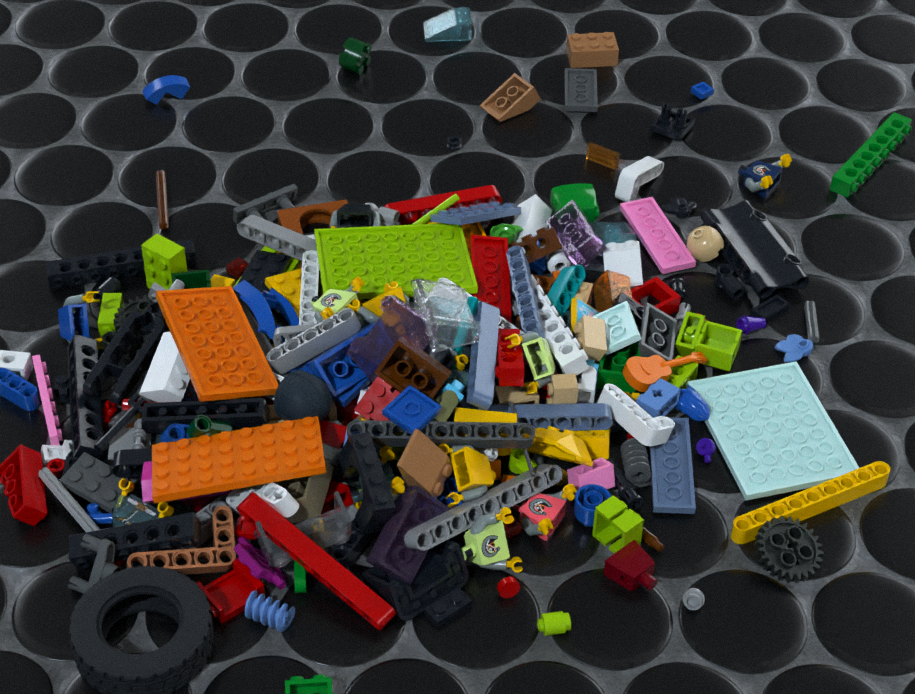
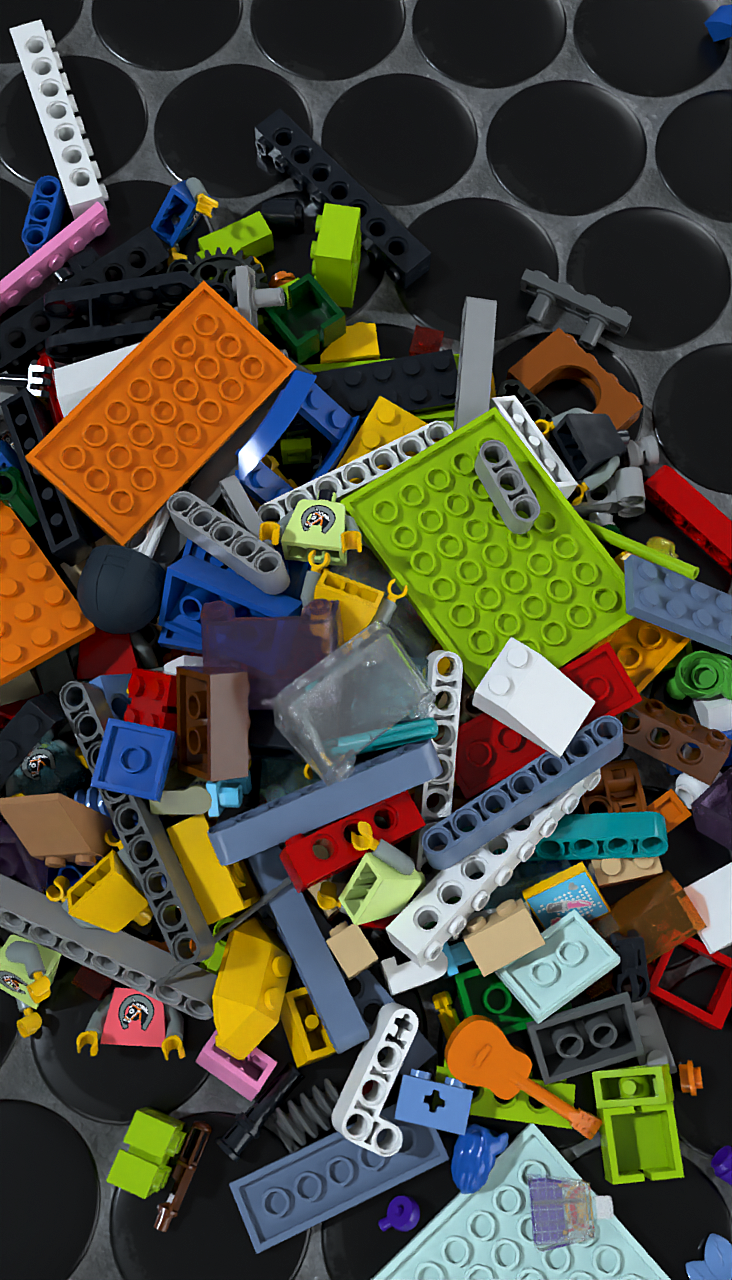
camera: 65 degrees right, 30 degrees up
(162, 200) = (507, 168): reddish brown axle -> none
(364, 235) = (506, 472): none -> light grey beam
(479, 266) = (533, 697): none -> white slope
(586, 500) = (160, 1095): blue piece -> none
(631, 567) = (90, 1204): dark red torso -> none
(681, 313) = (687, 1047): light grey pin -> none
(734, 380) = (564, 1211): none -> clear torso

